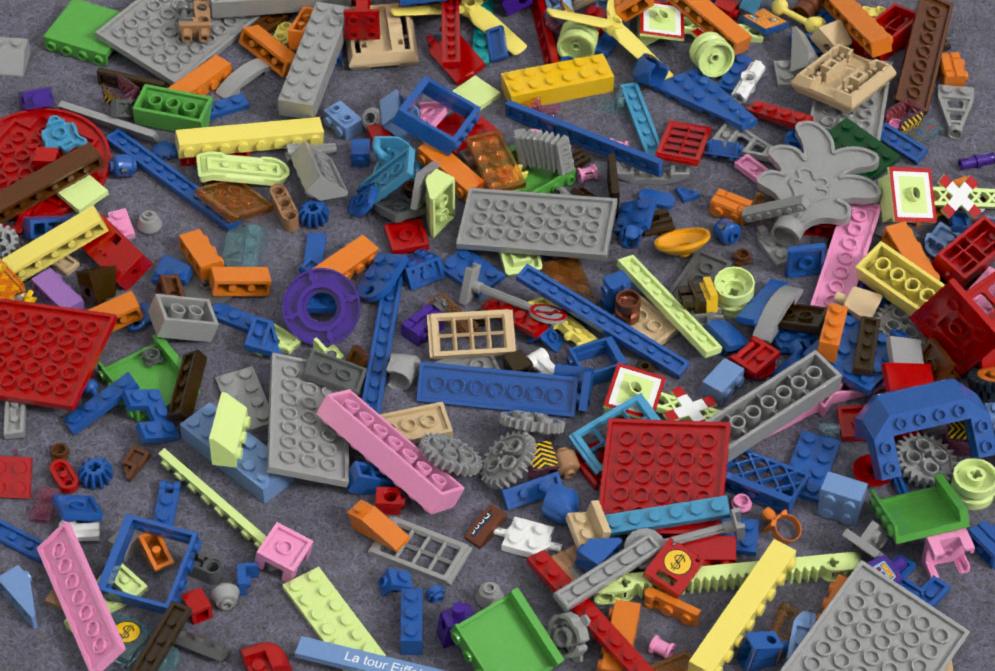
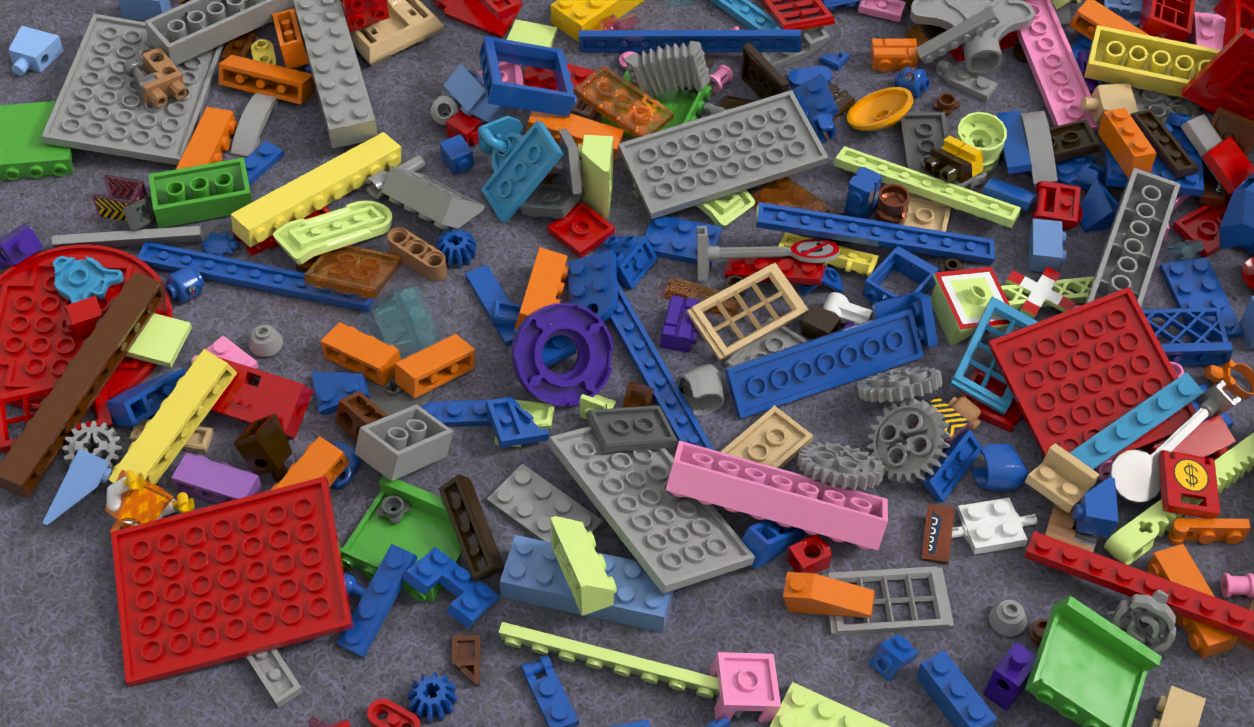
camera: 30 degrees left, 5 degrees up
(59, 448) = (364, 684): reddish brown plate -> none
(109, 78) = (91, 184): dark brown tile -> none
(342, 120) = (409, 126): medium blue brick -> none
(363, 201) = (505, 208): blue tile -> none
(435, 593) = (950, 645): blue plate -> none
(440, 304) = (687, 290): dark grey plate -> none
(607, 572) = (1132, 527): light grey tile -> none
(804, 260) = (1019, 79): blue tile -> none

